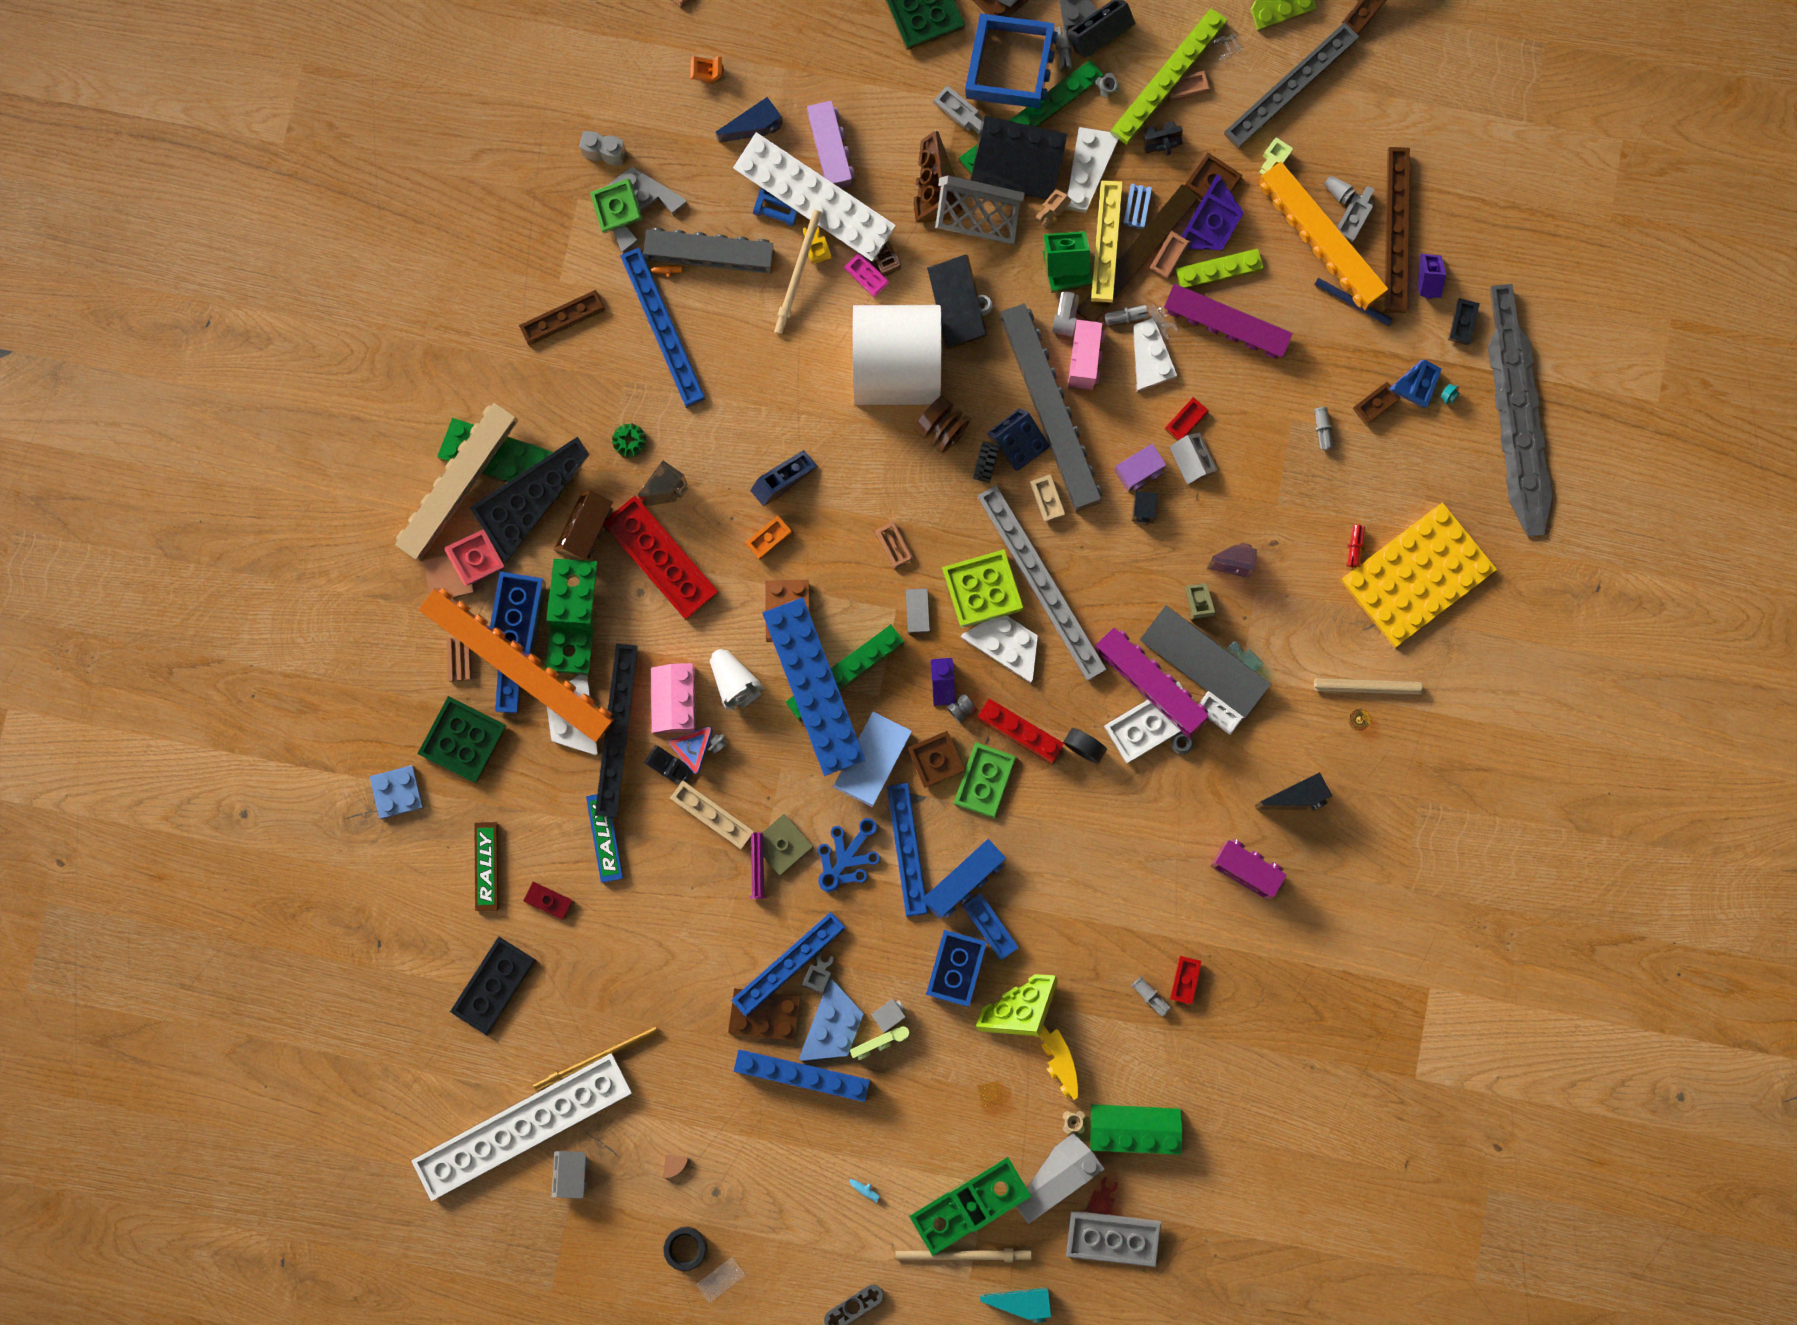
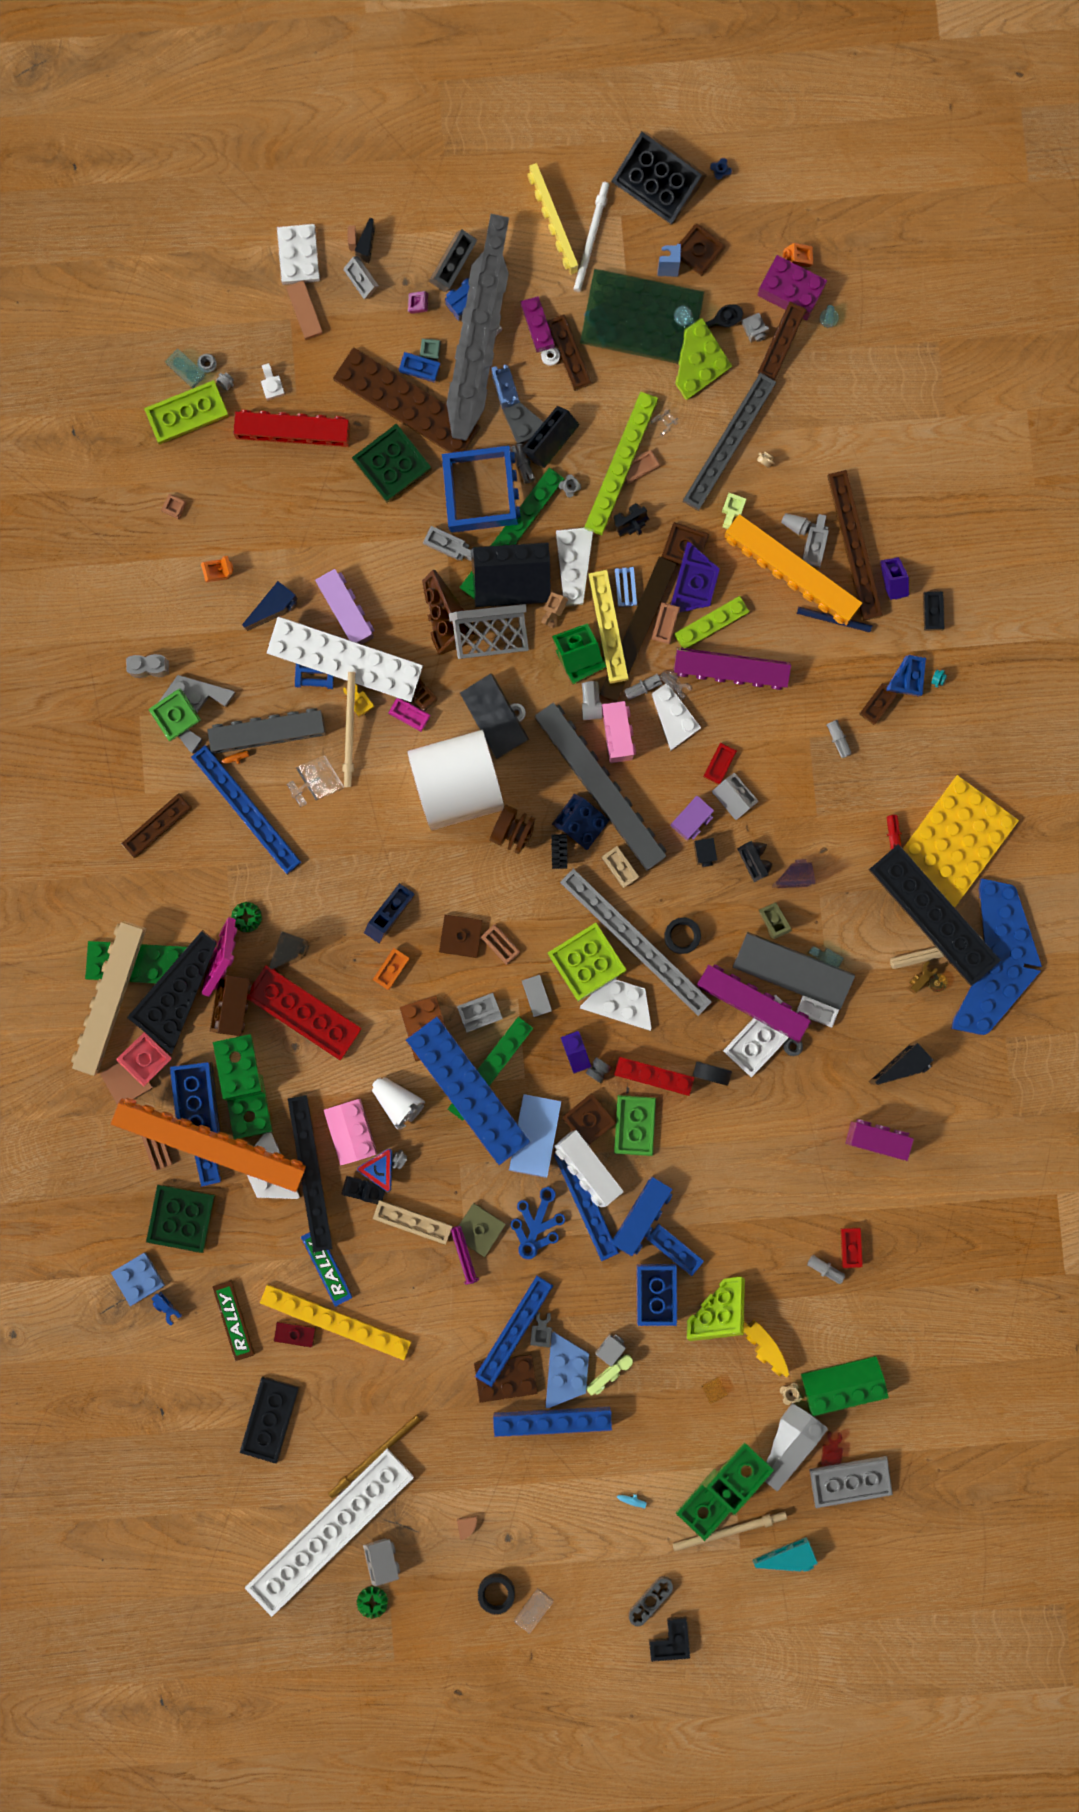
camera: 15 degrees left, 5 degrees up
(415, 826) = (161, 1303): none -> blue plate
(555, 1214) = (379, 1597): none -> green gear
(589, 472) = (221, 957): none -> dark pink plate
(596, 900) = (335, 1322): none -> yellow plate
(749, 314) = (318, 778): none -> clear plate
(850, 610) = (479, 1012): none -> light grey plate
(853, 524) = (460, 936): none -> reddish brown plate
(920, 810) = (588, 1169): none -> white brick
(1094, 573) = (682, 921): none -> black tyre
(1193, 524) = (751, 855): none -> black tile
(1325, 113) = (765, 459): none -> tan plate
(1339, 711) = (918, 981): none -> pearl gold plate
(1376, 643) = (934, 915): none -> black plate
(1446, 704) = (1011, 941): none -> blue wing
(1519, 415) = (1001, 678): flat silver plate -> none

